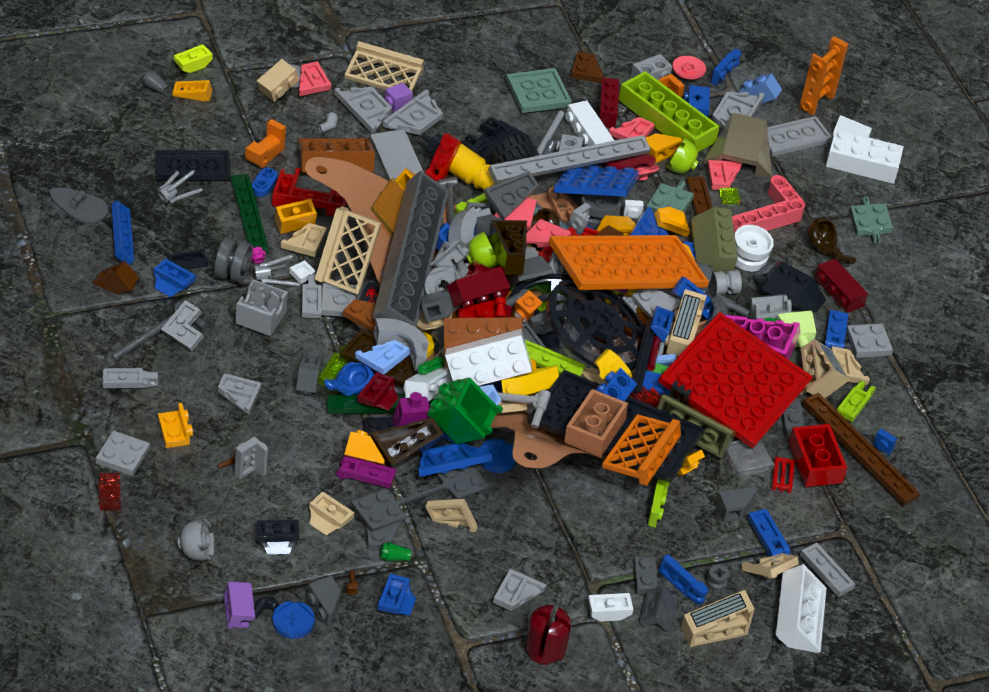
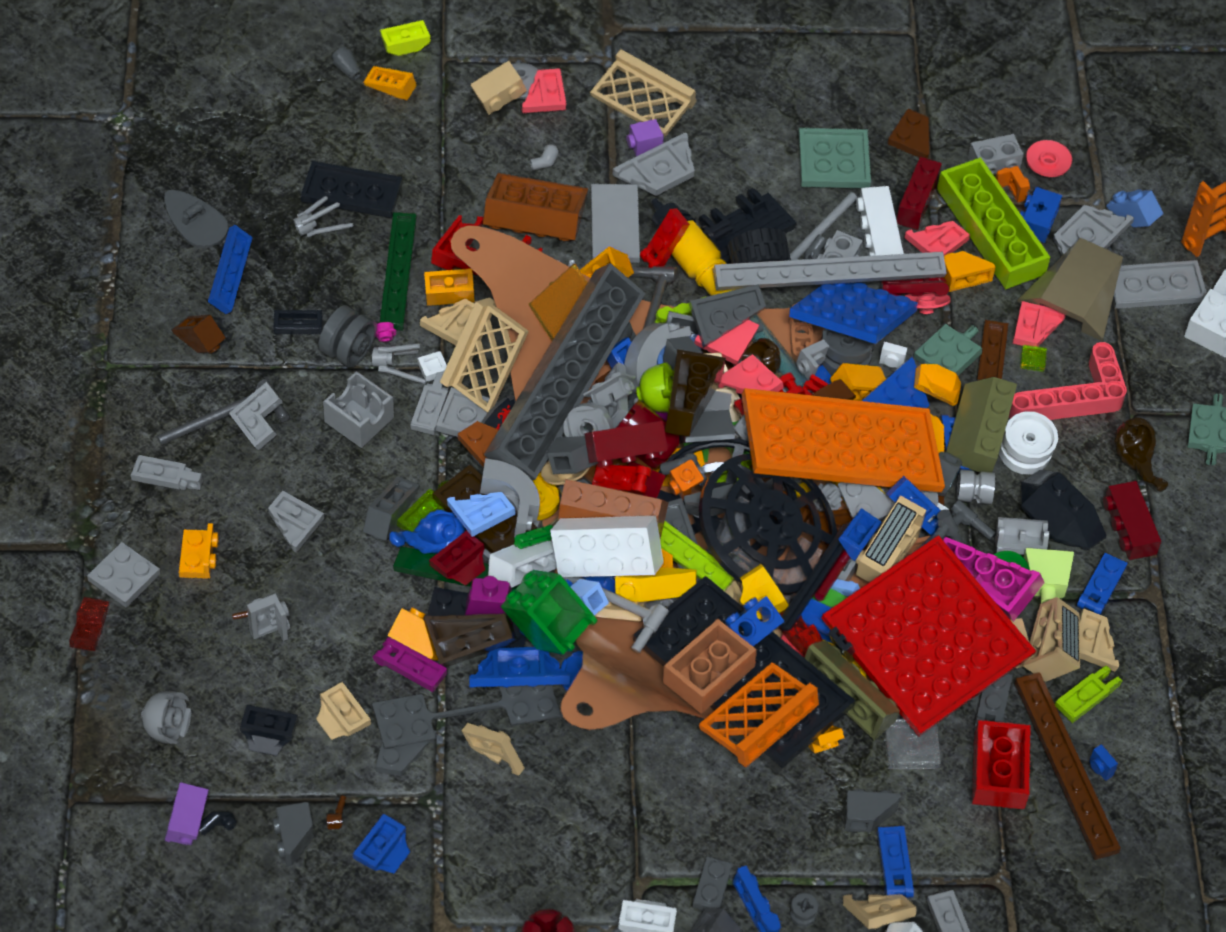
camera: 20 degrees right, 10 degrees up
(172, 278) = (267, 344): blue slope -> none
(264, 182) = (436, 225): blue plate -> none
(268, 147) = (452, 181): orange piece -> none
(293, 619) = (247, 848): blue tile -> none
(366, 105) = (601, 142): light grey wing -> none
(394, 552) = (403, 784): green cone -> none
(517, 590) = (538, 870): light grey wing -> none
(658, 500) = (768, 782): lime hinge -> none
(684, 158) = (988, 293): lime cylinder -> none
(726, 65) = (1100, 164): blue hinge -> none
(781, 486) = (941, 797): red tile -> none
(869, 340) = (1142, 607): light grey plate -> none

